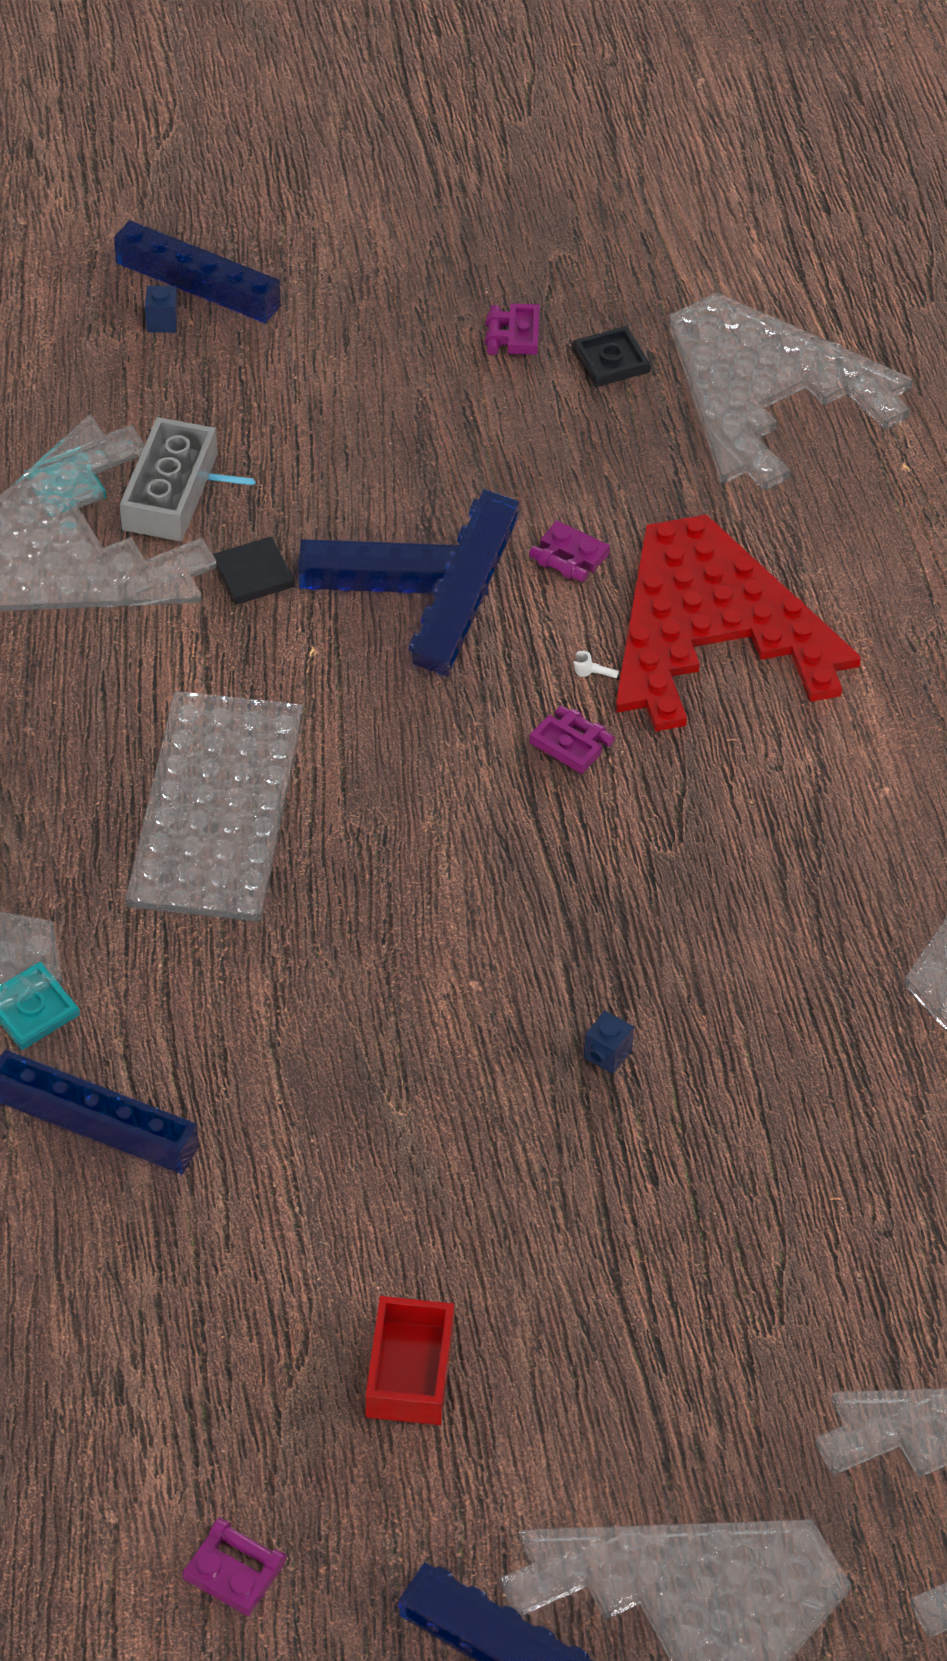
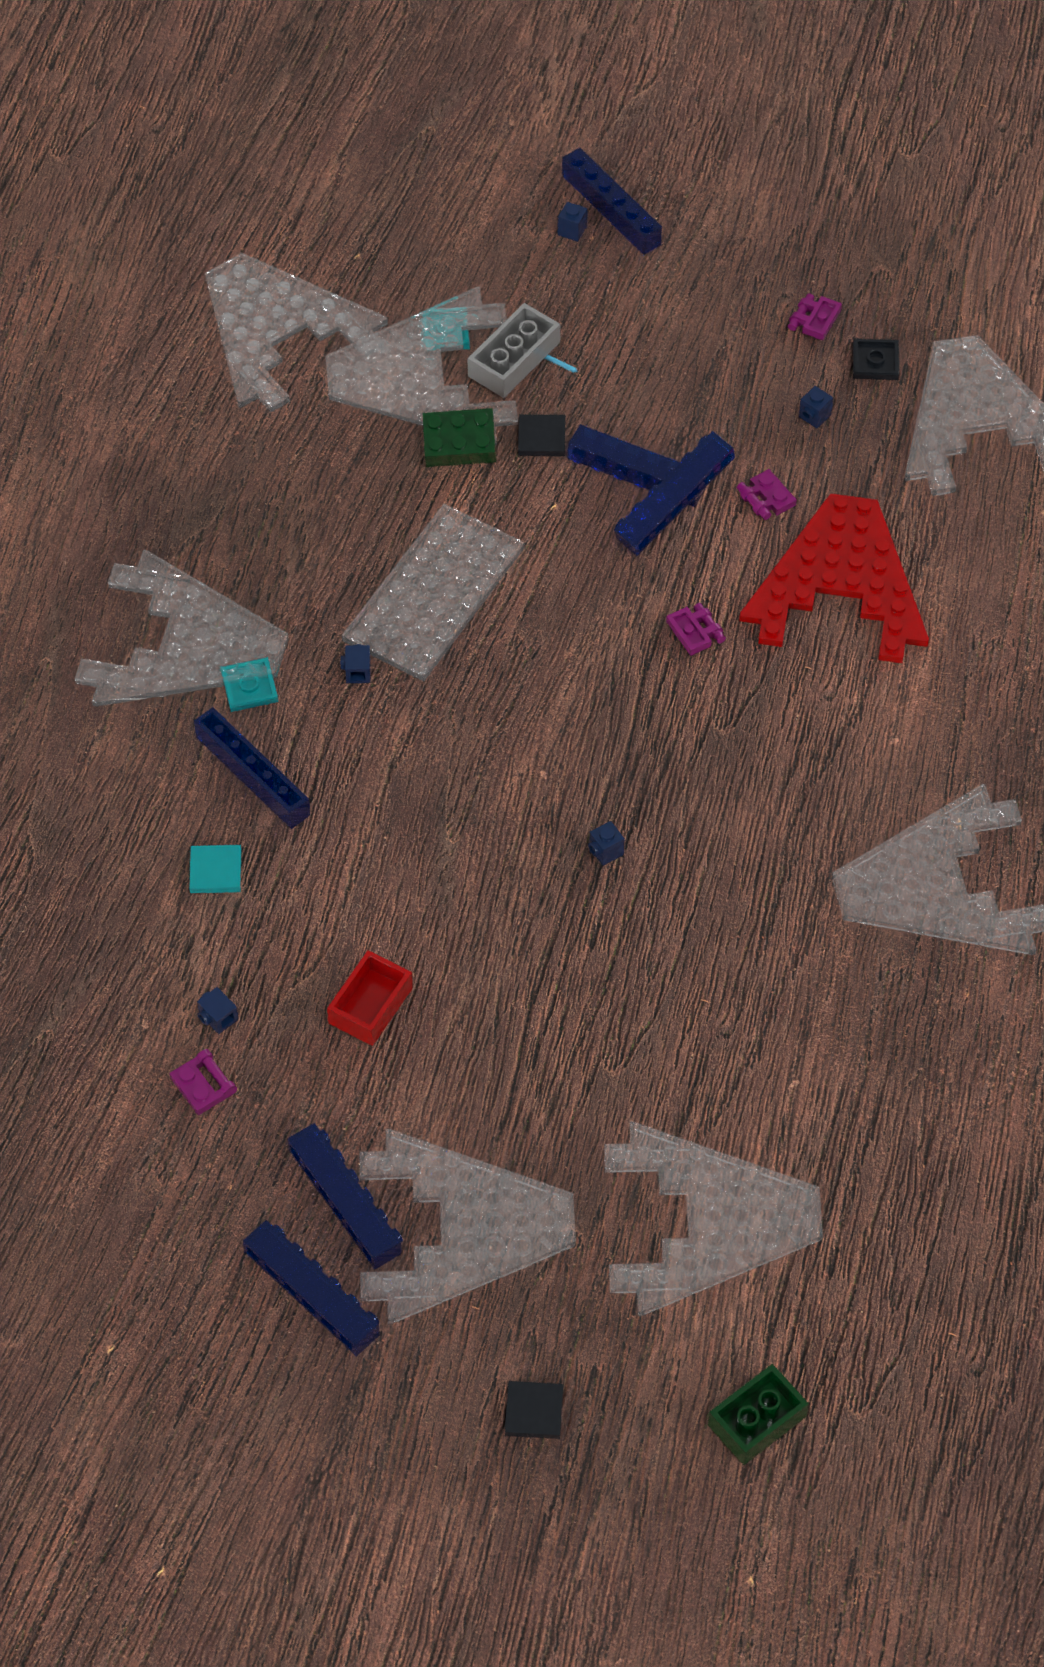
camera: 25 degrees right, 5 degrees up
(106, 1265) = (215, 869): none -> teal tile
(155, 603) = (459, 437): none -> dark green brick
(164, 928) = (357, 663): none -> dark blue brick
(206, 1458) = (217, 1010): none -> dark blue brick
(575, 430) = (816, 407): none -> dark blue brick
(585, 667) = (735, 582): white hand -> none

